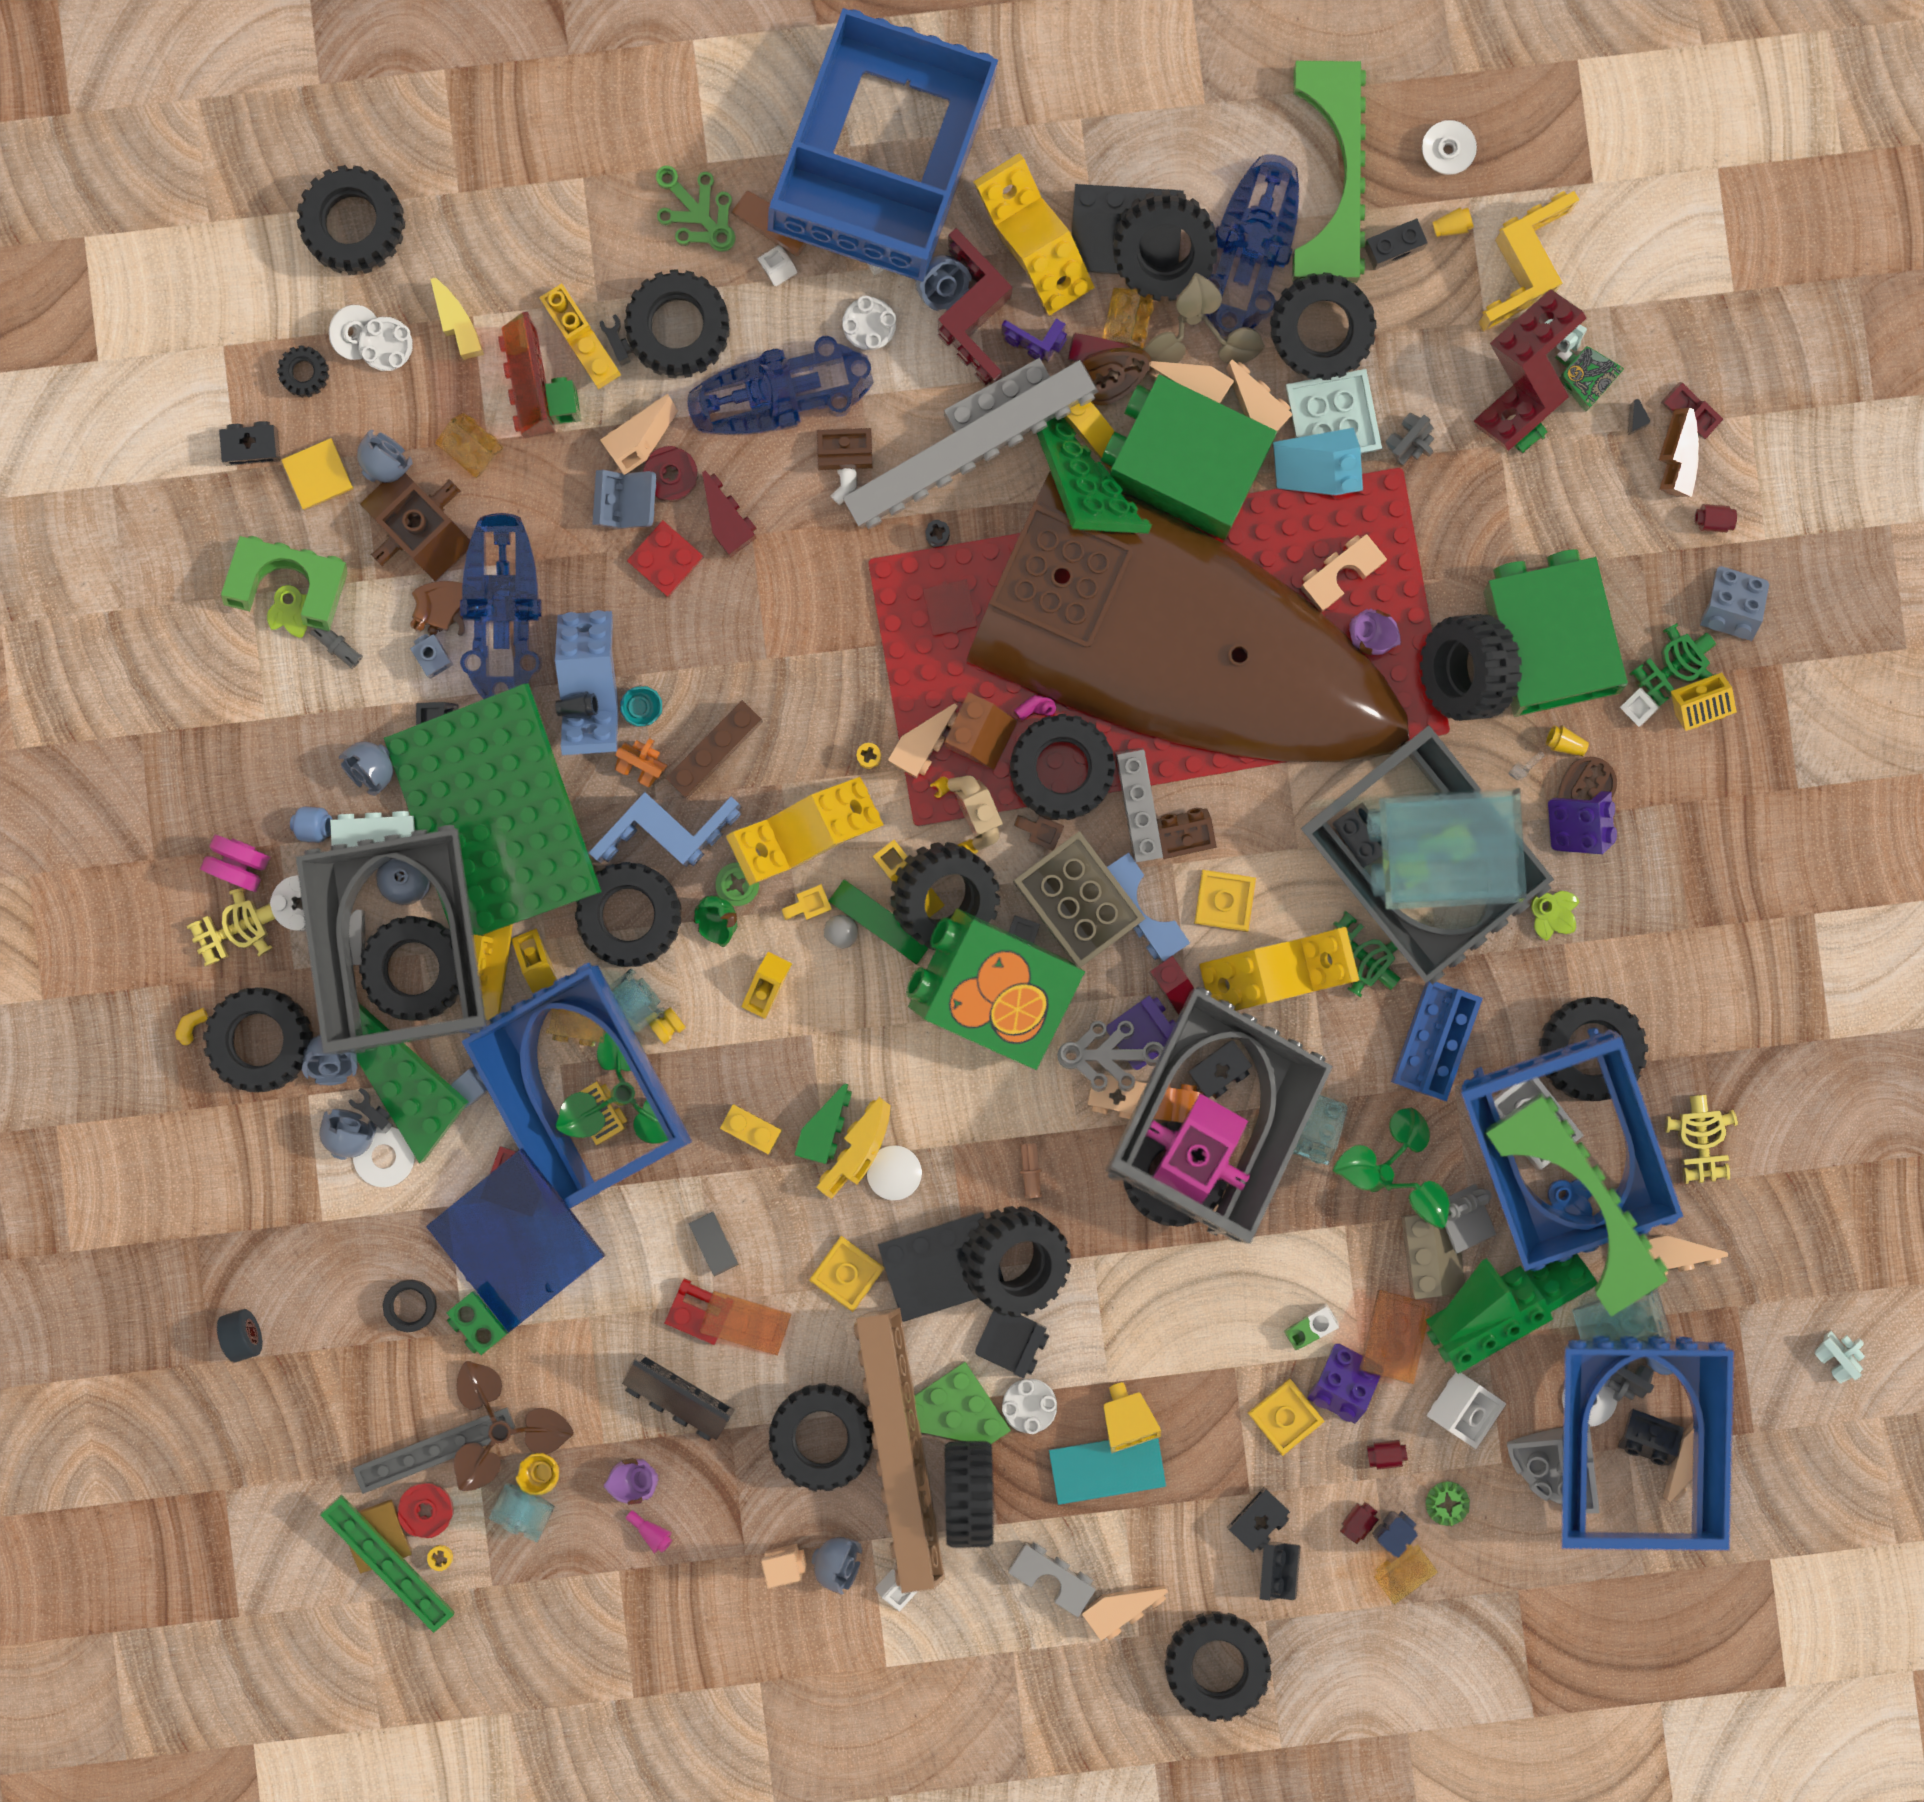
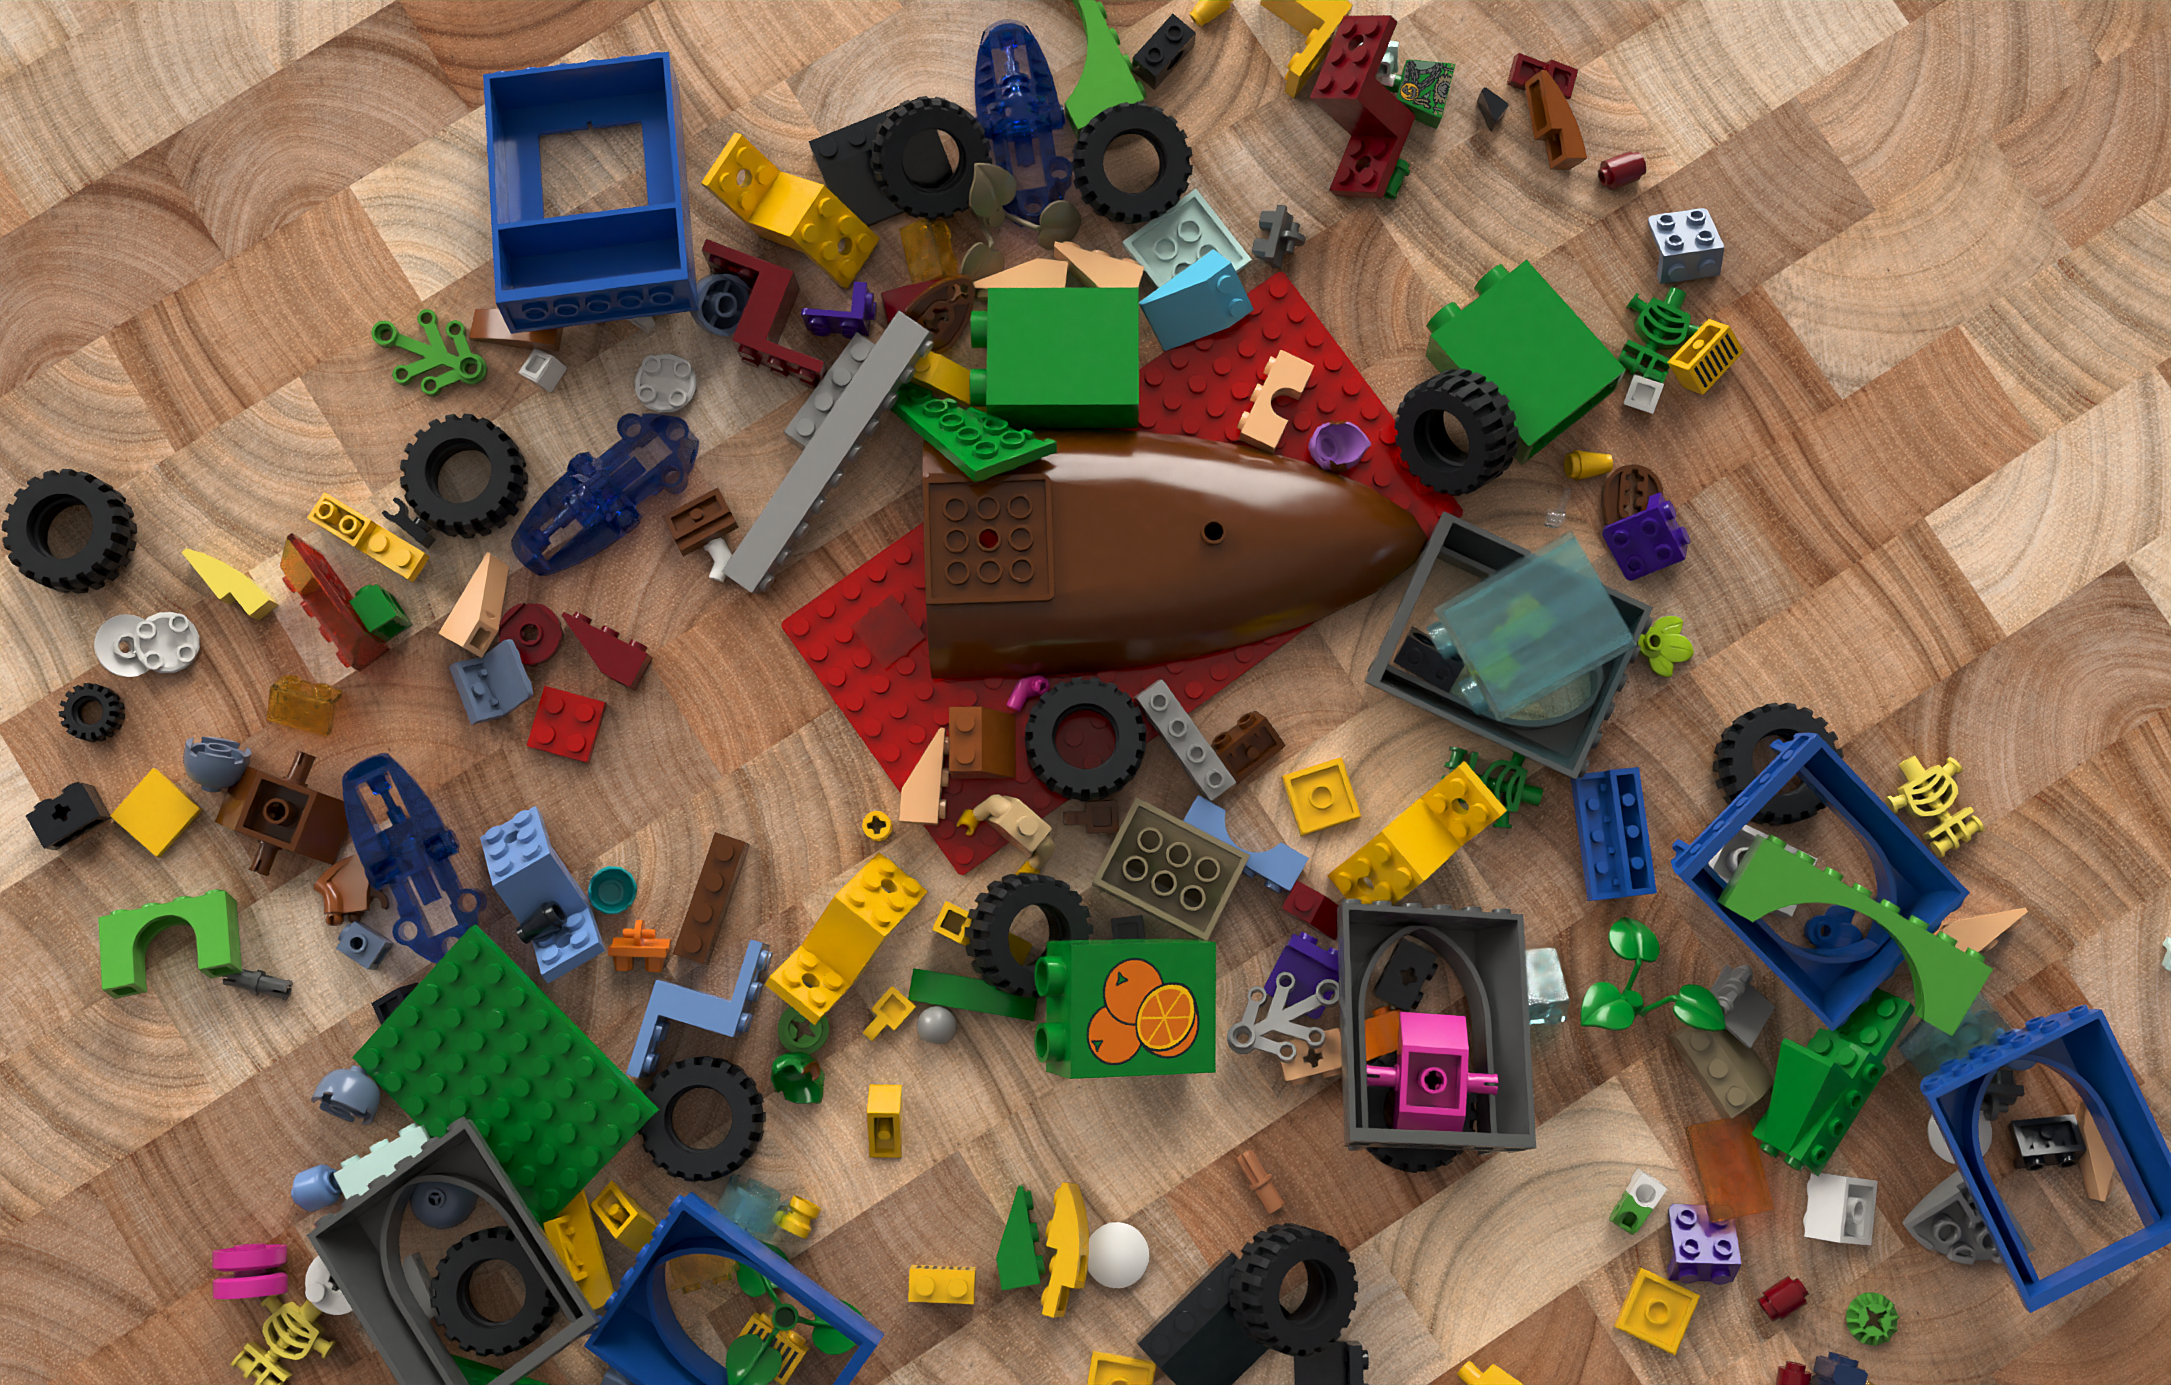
camera: 25 degrees left, 5 degrees down
(287, 614) = (188, 976): lime plate -> none
(933, 541) = (838, 571): black bush -> none

